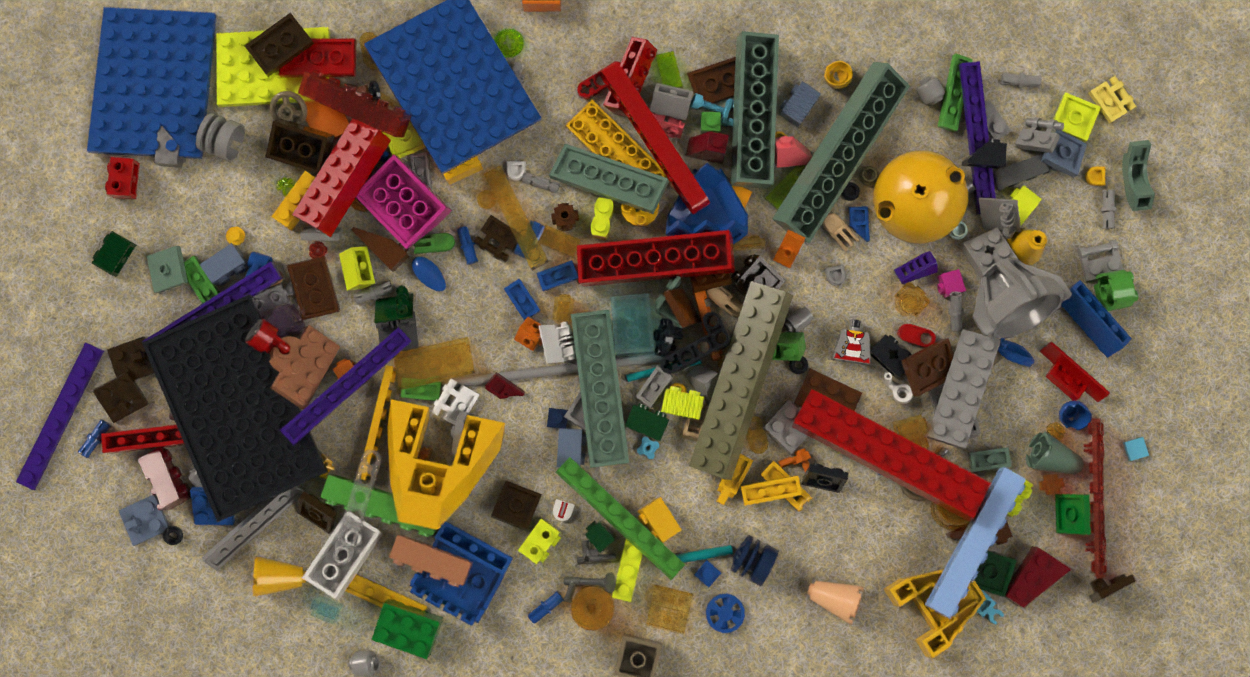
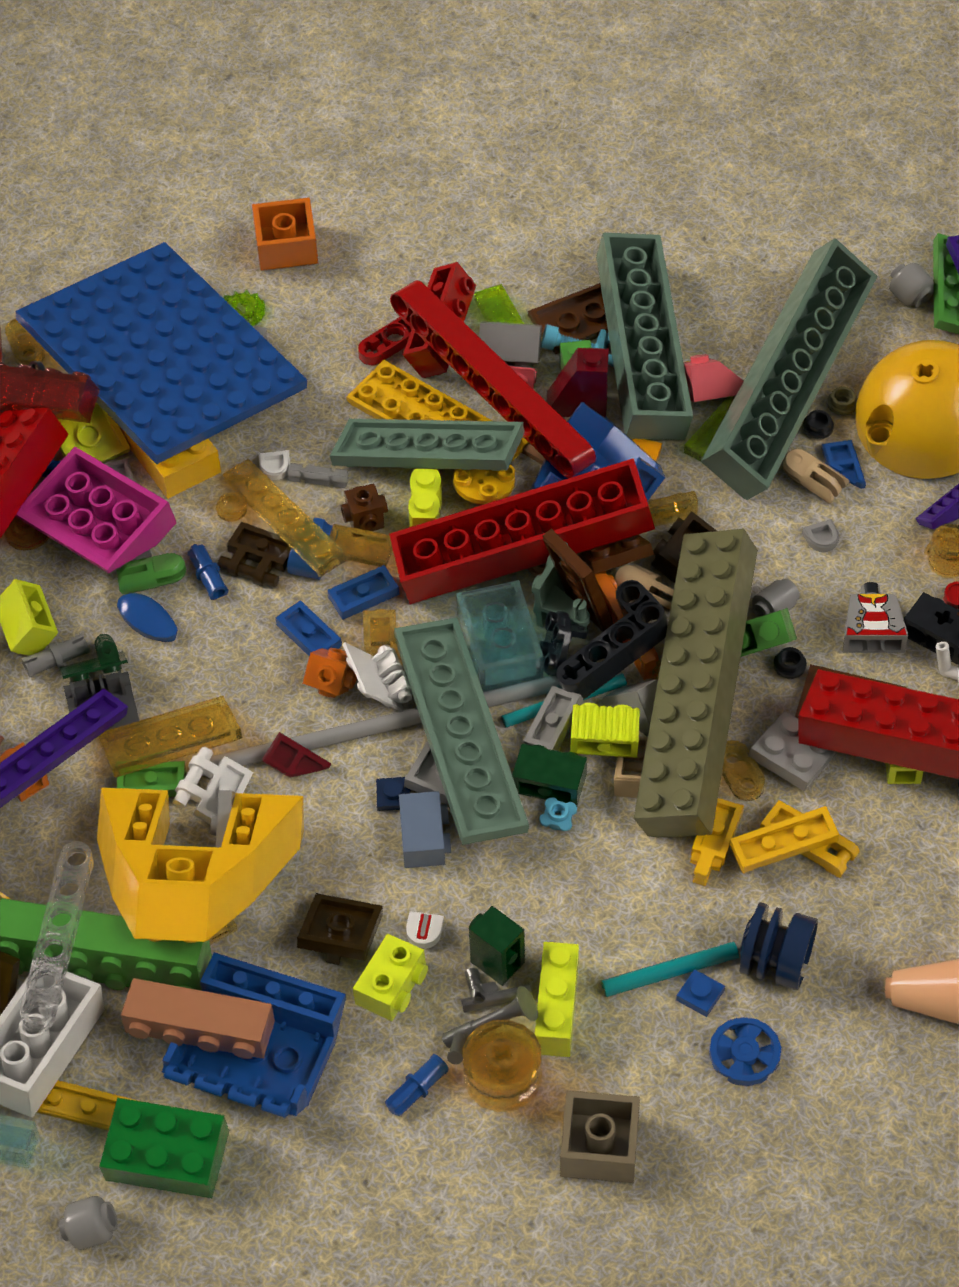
camera: 10 degrees left, 30 degrees down
(379, 414) = (87, 794): yellow plate -> none
(387, 250) = (67, 588): reddish brown slope -> none
(620, 518) = (530, 908): bright green plate -> none
(659, 519) = (597, 913): yellow brick -> none
(671, 601) = (645, 1046): clear yellow slope -> none
(789, 248) = (737, 499): orange plate -> none
(799, 104) = (712, 324): sand blue brick -> none
(802, 456) = (825, 792): orange piece -> none
(825, 478) = (873, 807): black hinge -> none
(844, 73) = (771, 280): yellow hair -> none

